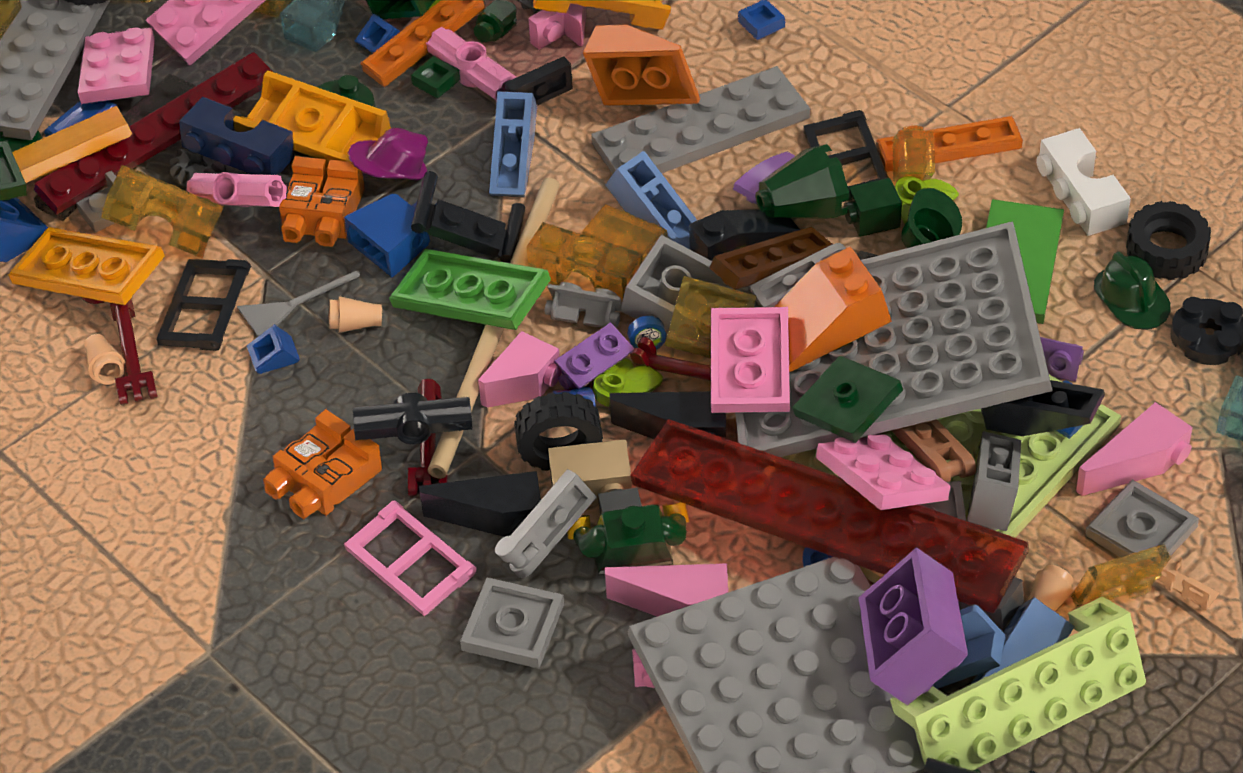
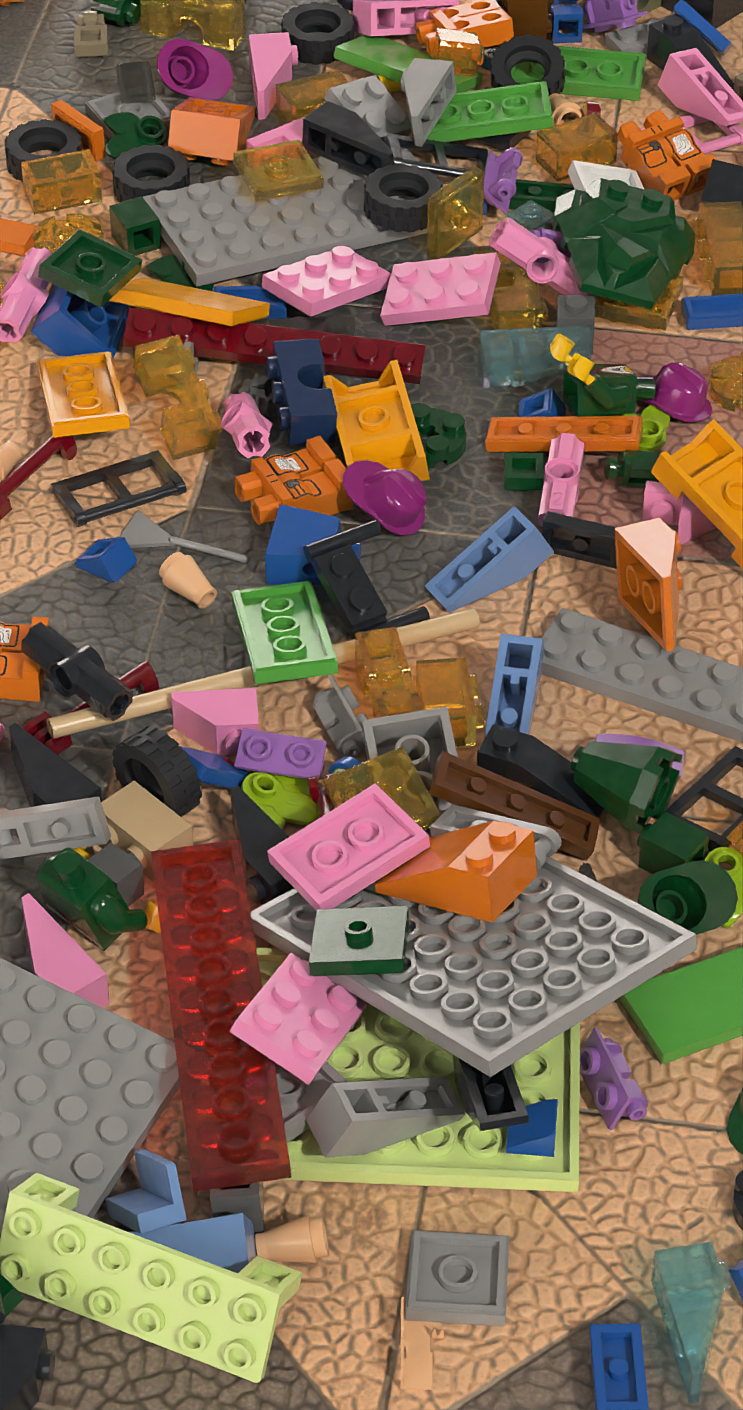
camera: 50 degrees right, 5 degrees down
(912, 627) = (104, 1129): medium lavender brick -> none
(933, 446) = (377, 1042): nougat plate -> none
(1122, 576) = (342, 1276): clear yellow plate -> none
(1138, 452) = (549, 1220): bright pink slope -> none

